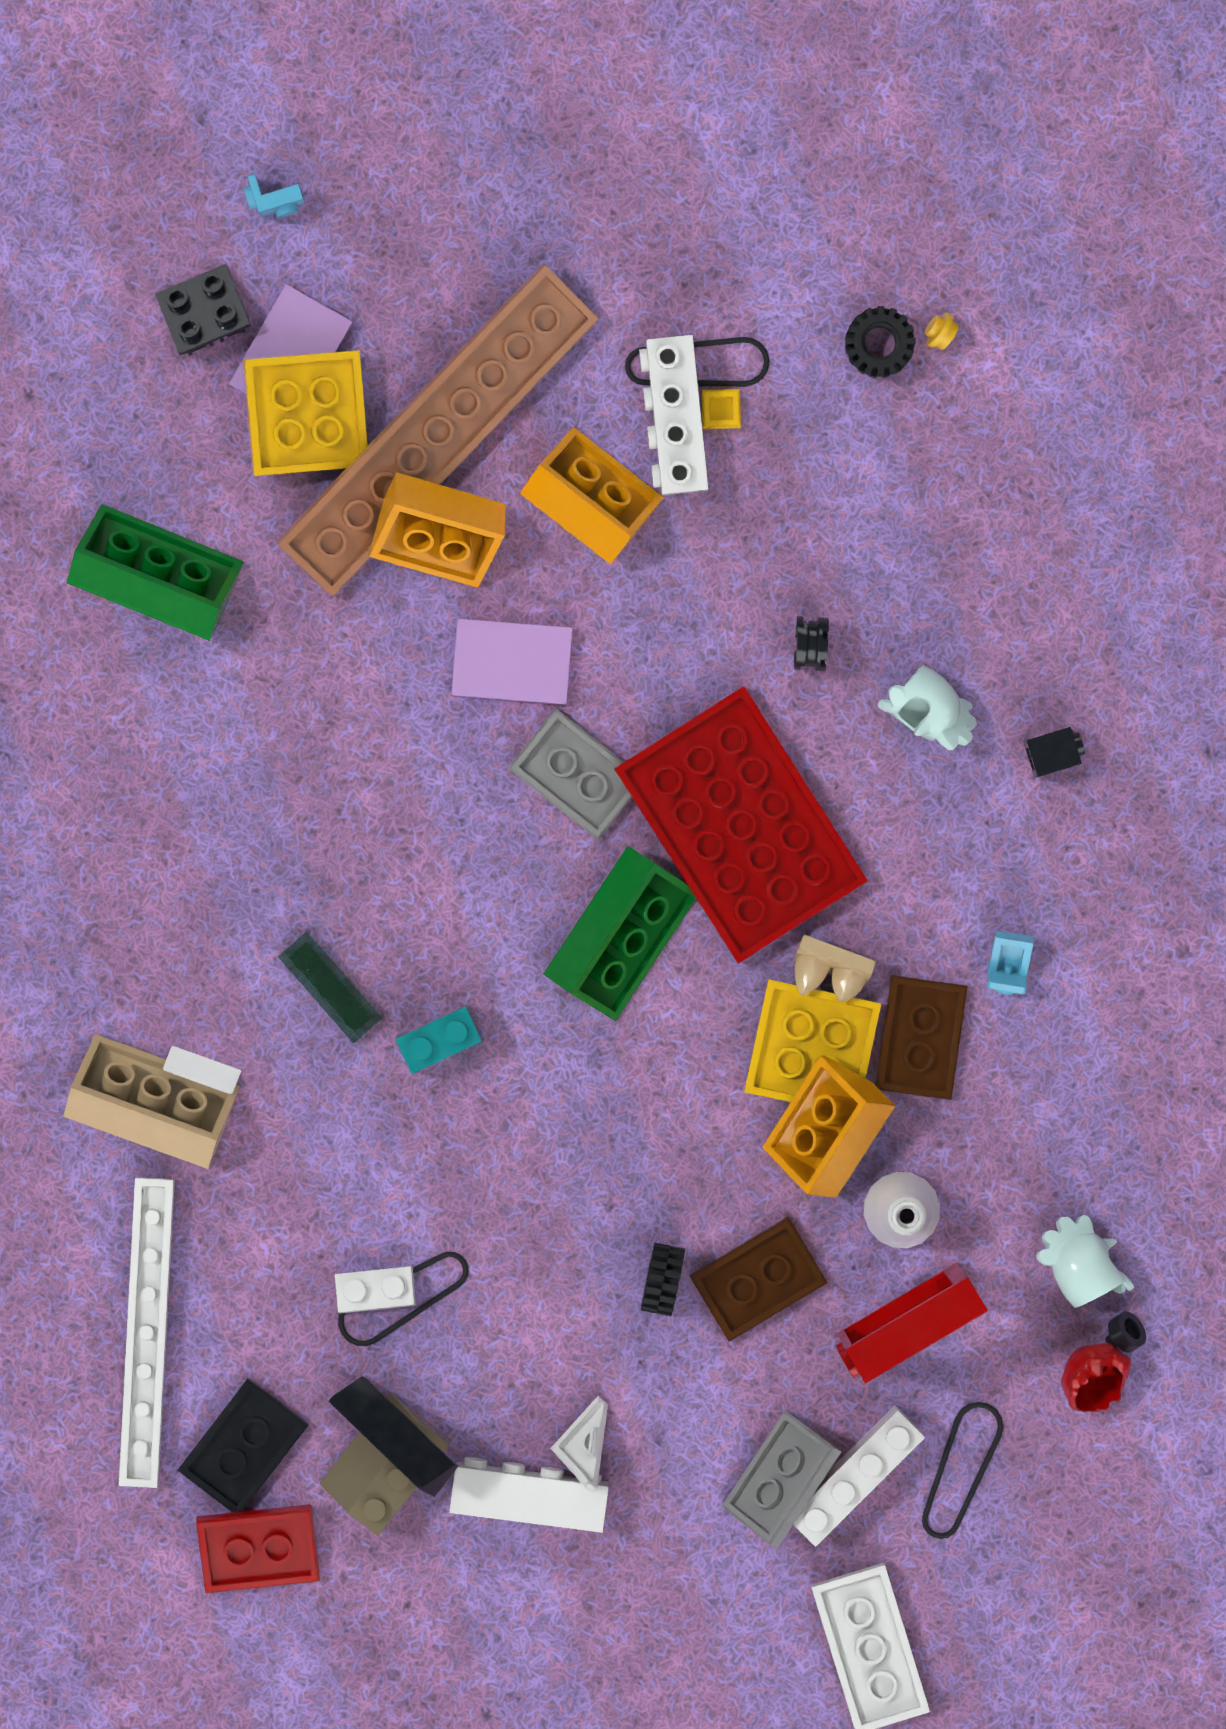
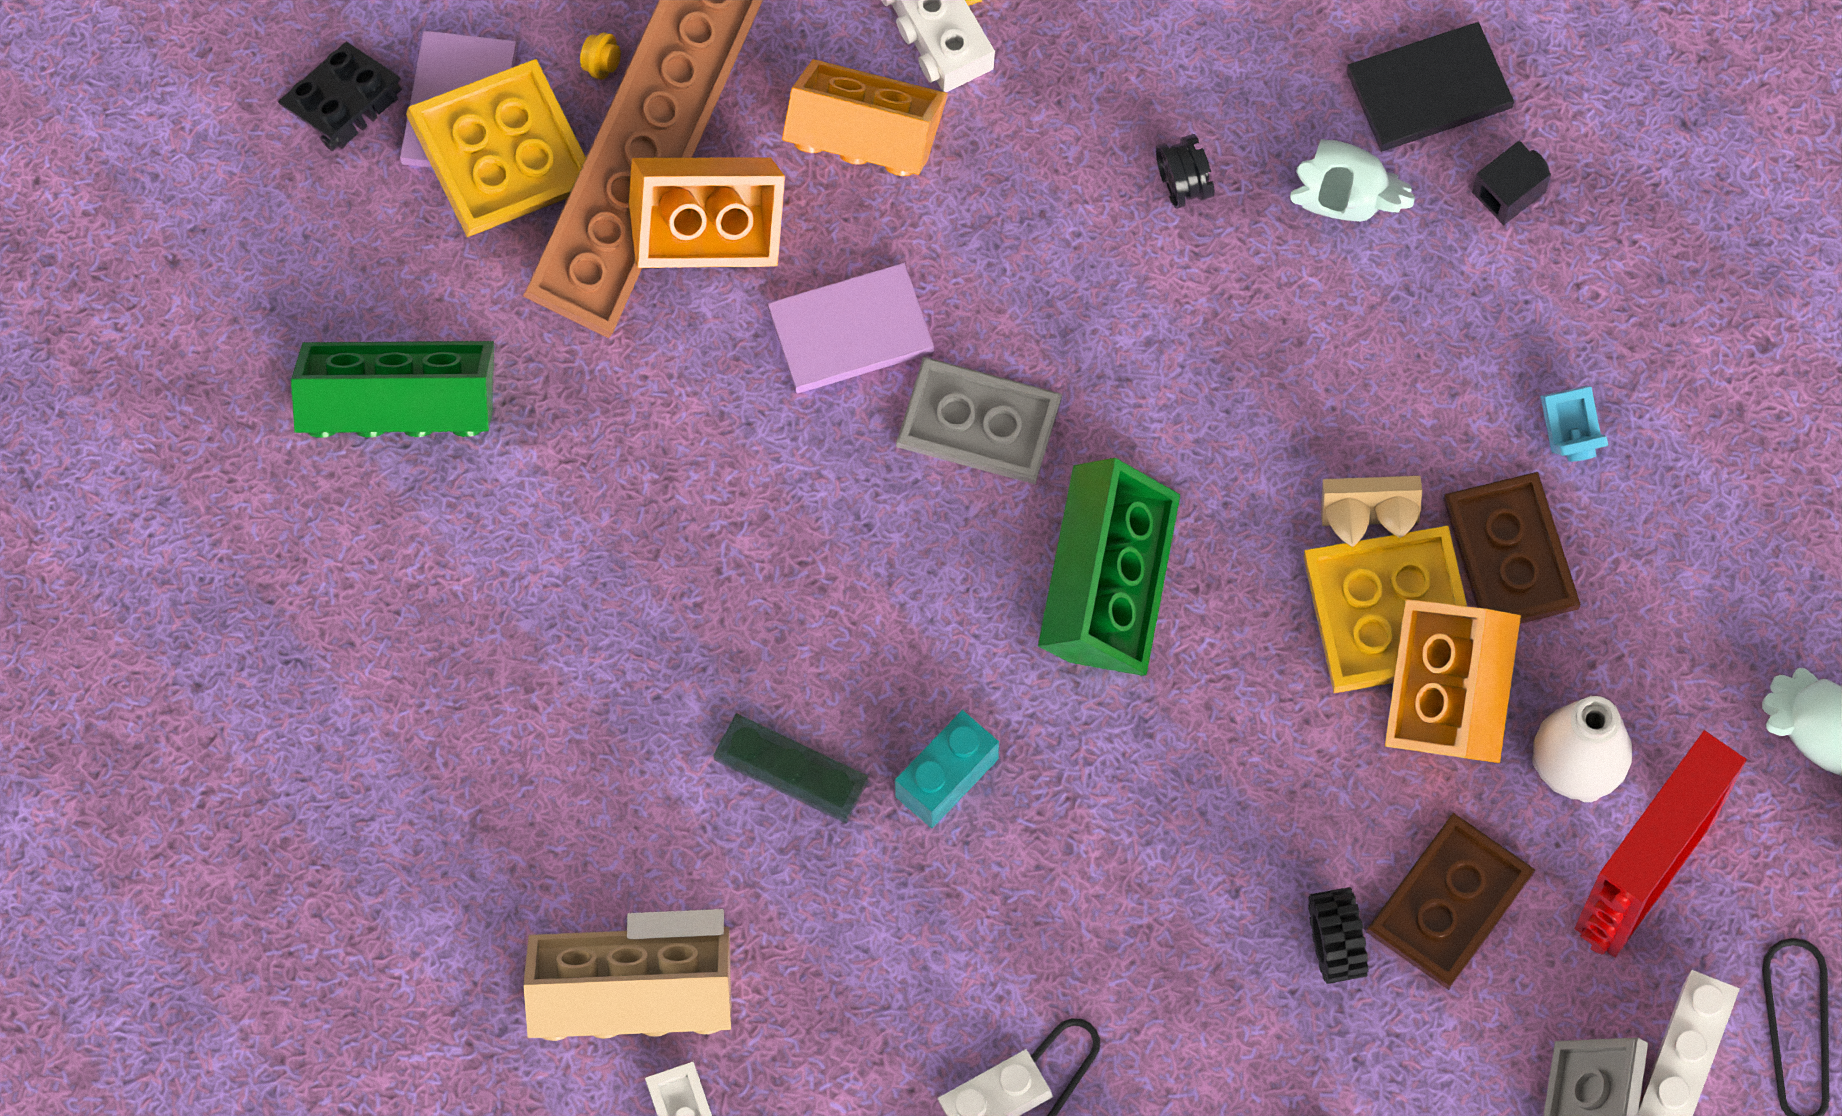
camera: 20 degrees left, 20 degrees down
(412, 361) = (600, 55): none -> yellow plate
(740, 824) = (1194, 398): red plate -> none
(1029, 644) = (1430, 86): none -> black tile

